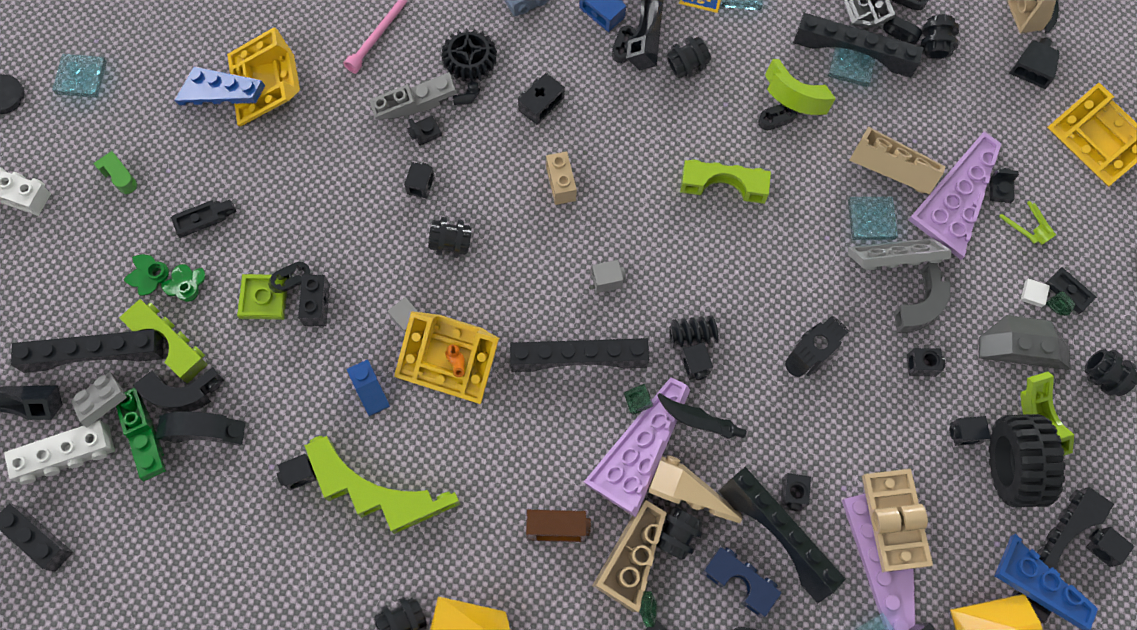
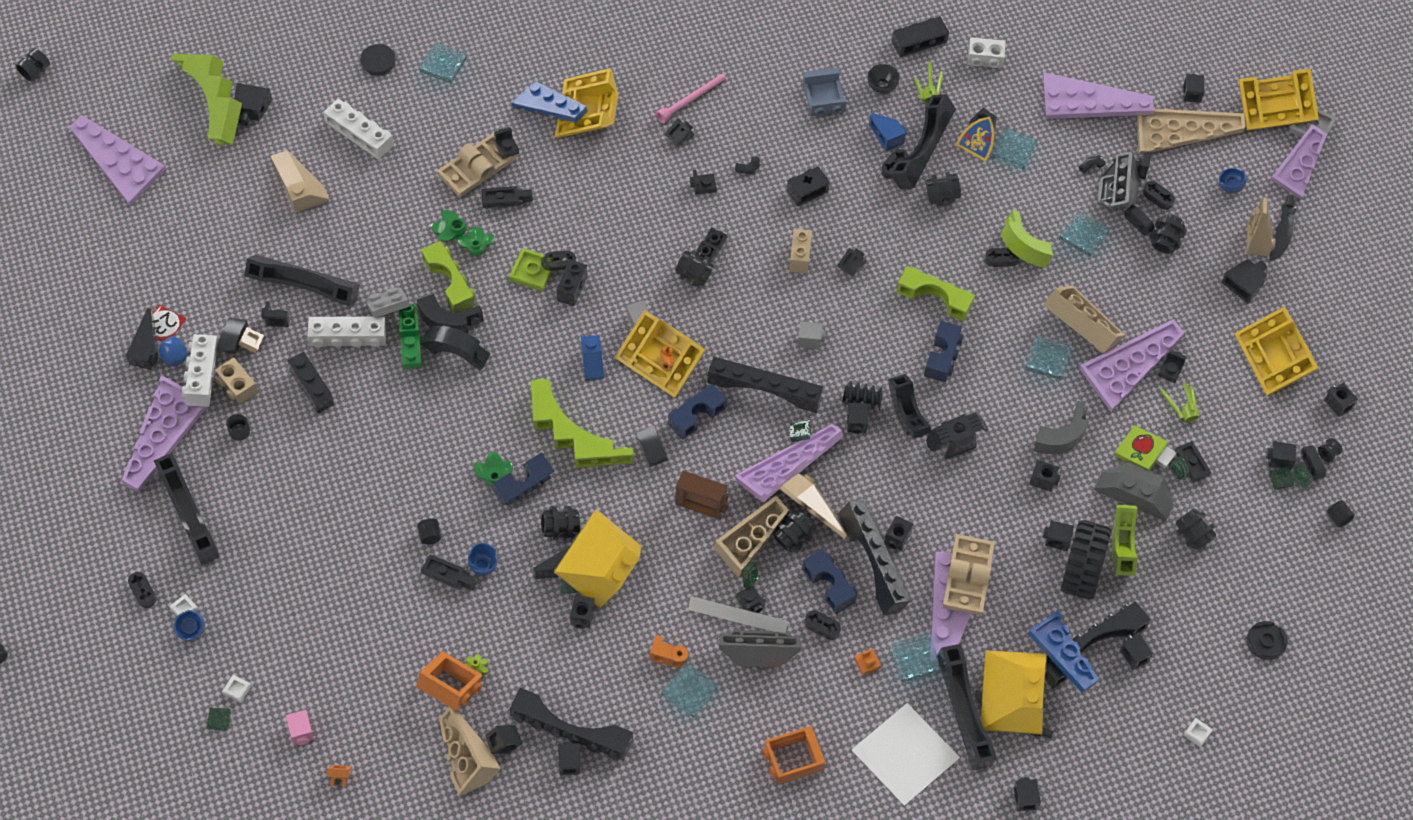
camera: 20 degrees right, 10 degrees down
(50, 353) = (358, 259): black arch -> none
(120, 175) = (450, 142): bright green leg -> none
(155, 187) = (473, 166): none -> tan plate
(181, 152) = (505, 142): none -> black bracket
(296, 472) = (517, 399): black brick -> none
(296, 570) = (492, 467): none -> green plate
(324, 598) = (508, 488): none -> dark blue arch
(377, 78) = (679, 132): none -> black bracket
(412, 100) = (703, 157): light grey slope -> none
(419, 179) = (685, 219): black brick -> none
(458, 201) = (711, 245): none -> black slope
(475, 478) = (652, 446): none -> black slope
(481, 51) = (751, 130): black gear -> none
(521, 396) = (707, 400): none -> dark blue arch
(621, 172) = (851, 261): none -> black bracket
(701, 420) = (843, 458): black sword -> none
(748, 334) = (906, 407): none -> black arch
(761, 231) = (939, 364): none -> dark blue arch
(896, 55) = (1122, 237): black arch -> none
(896, 253) = (1049, 387): light grey plate -> none
(1011, 293) = (1141, 448): none -> lime tile

